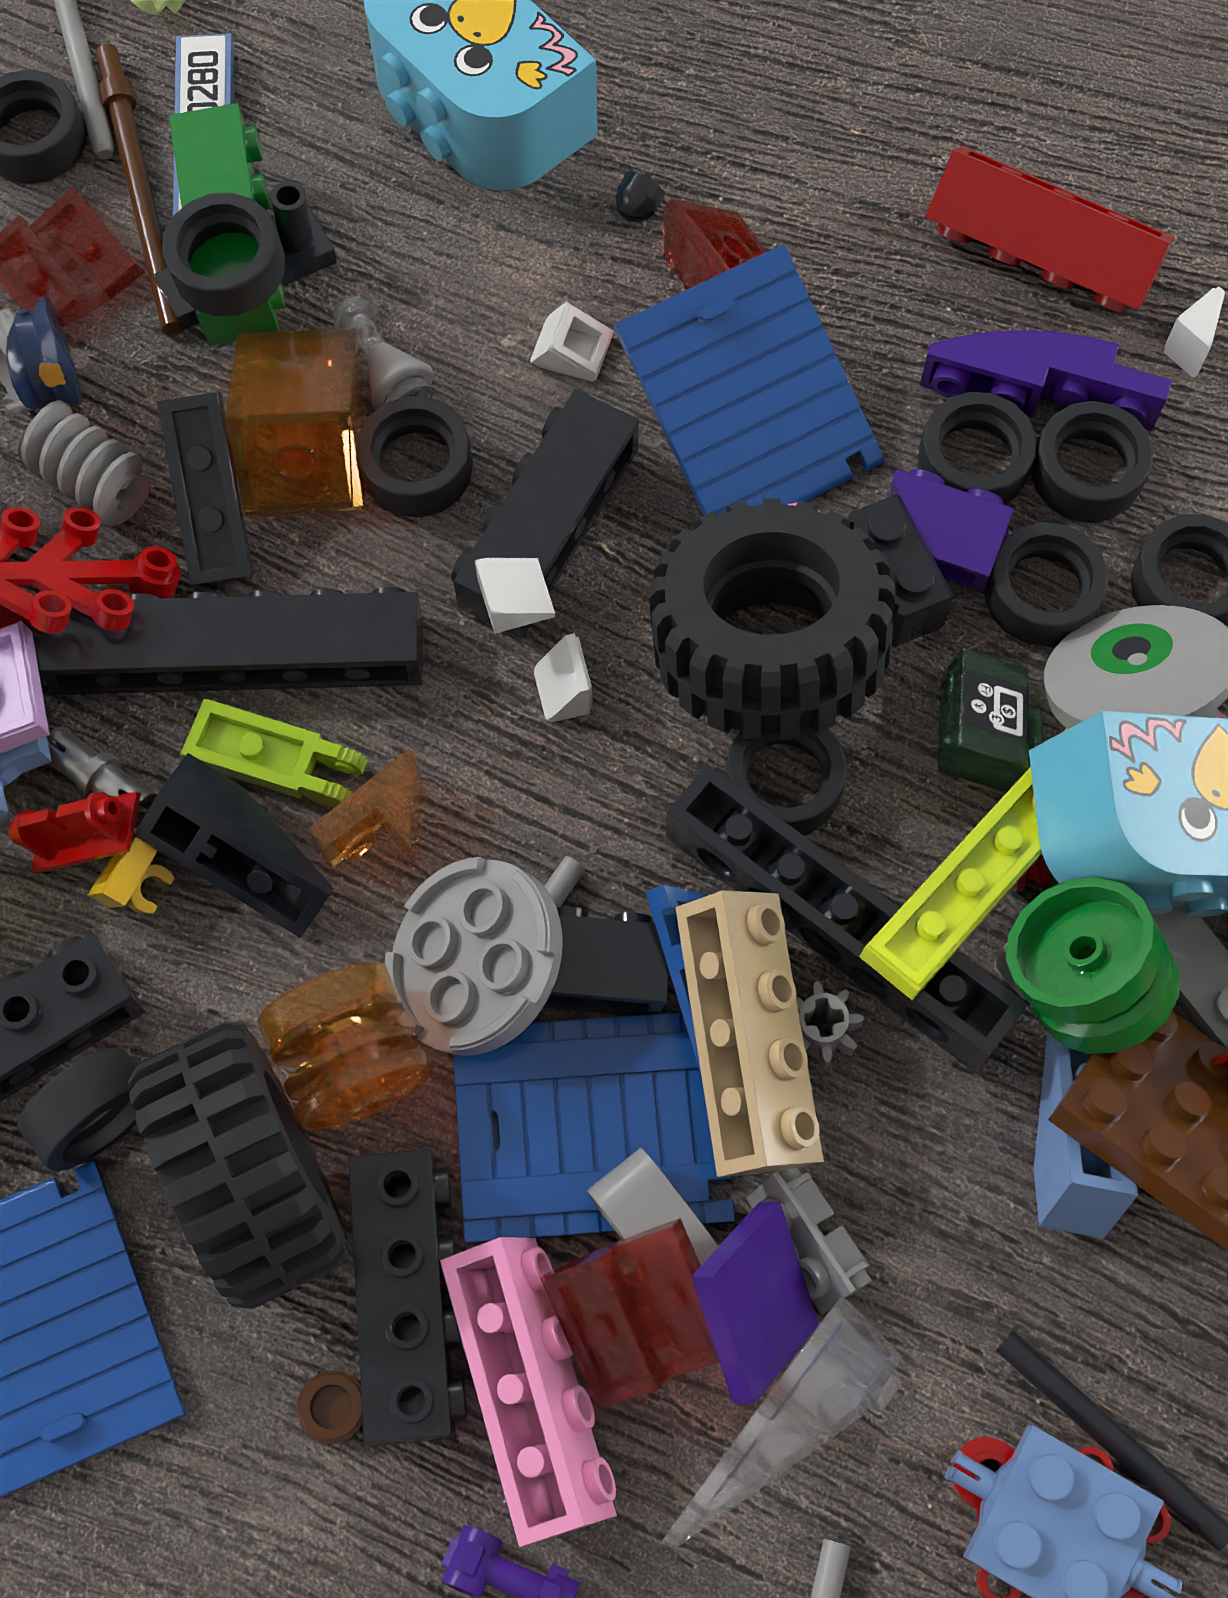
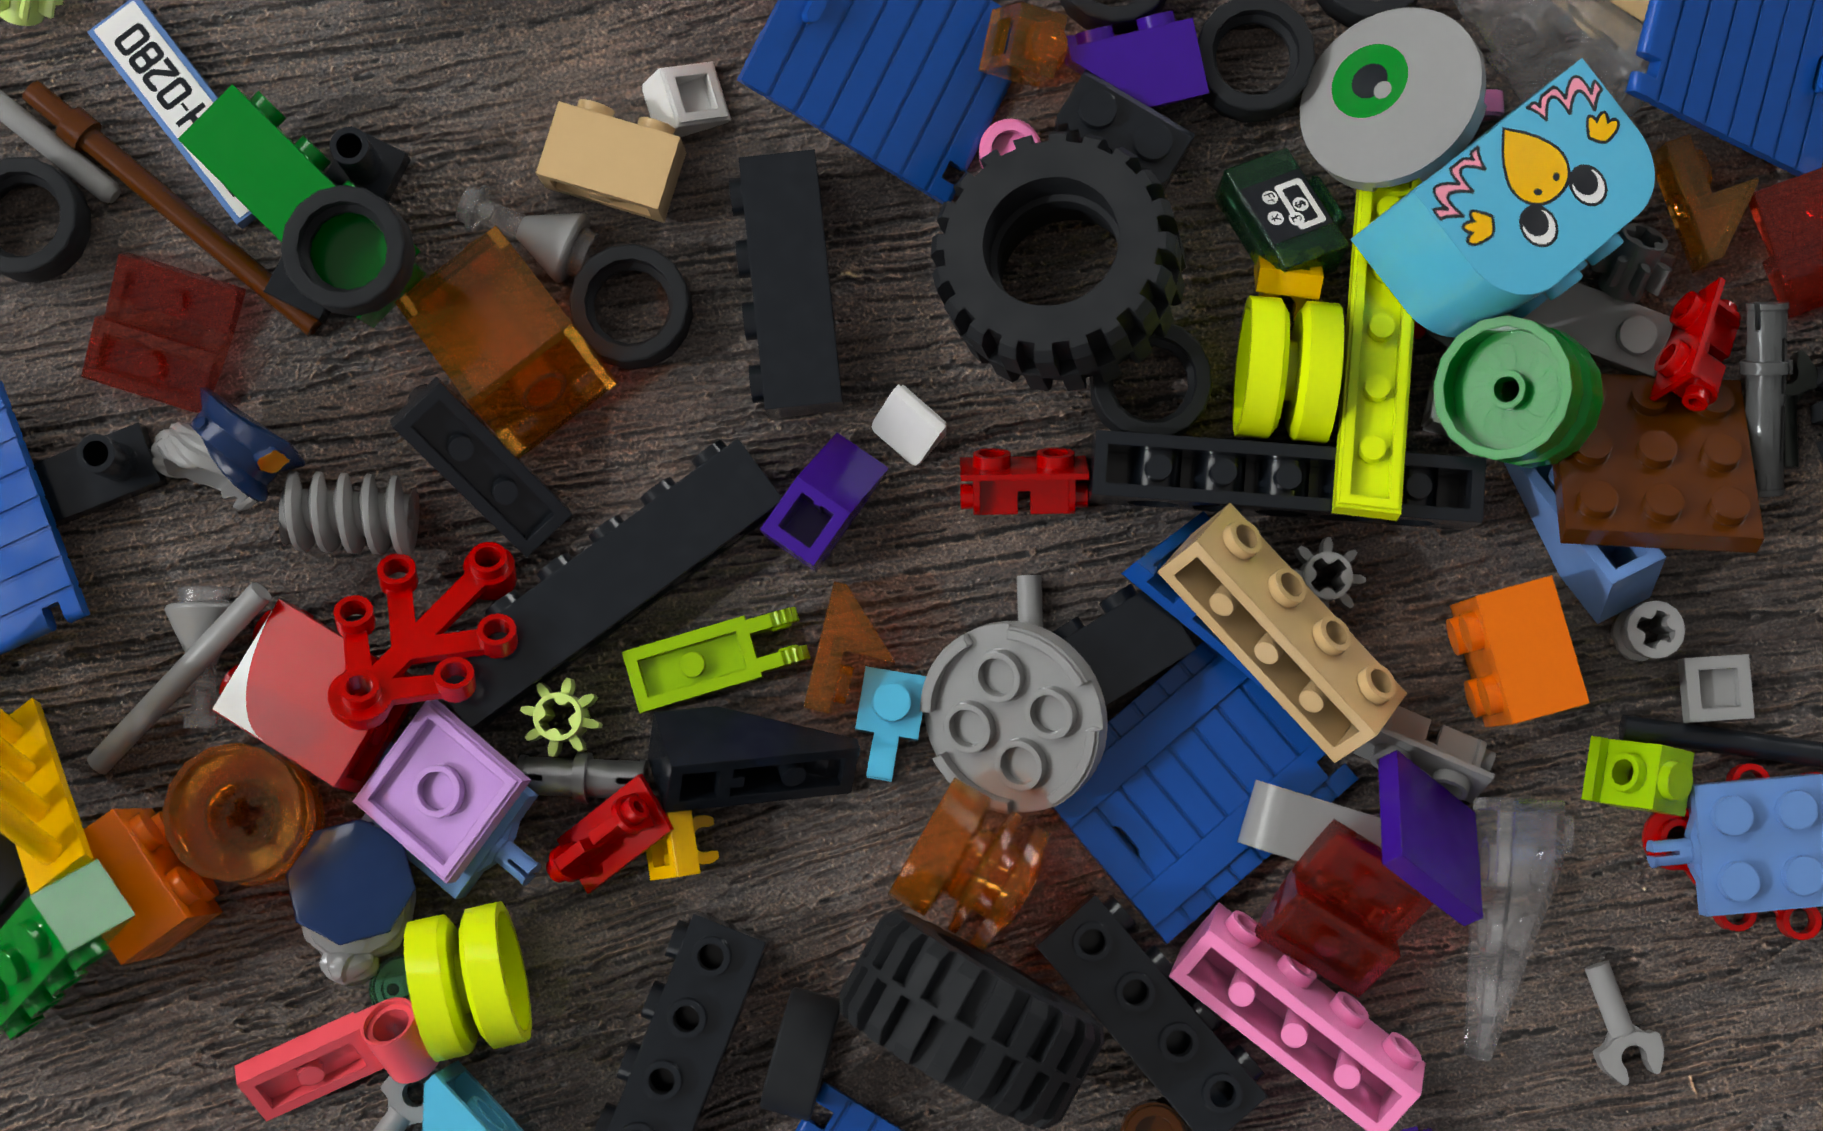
camera: 30 degrees left, 15 degrees up
(118, 717) = (543, 713): none -> yellowish green gear
(376, 896) = (889, 711): none -> medium azure plate
(447, 688) = (824, 501): none -> dark purple slope
(480, 341) = (612, 159): none -> tan brick
(513, 592) = (829, 387): white slope -> none
(603, 768) = (1047, 476): none -> red hinge
(864, 453) = (1034, 46): none -> clear orange brick
(895, 820) = (1297, 371): none -> neon yellow wheel
(947, 1195) = (1516, 653): none -> orange brick
(956, 766) = (1296, 284): none -> yellow tile
(987, 1386) = (1638, 776): none -> lime brick
(1098, 1278) = (1664, 622): none -> light grey bush
(1113, 1362) = (1716, 688): none -> light grey plate

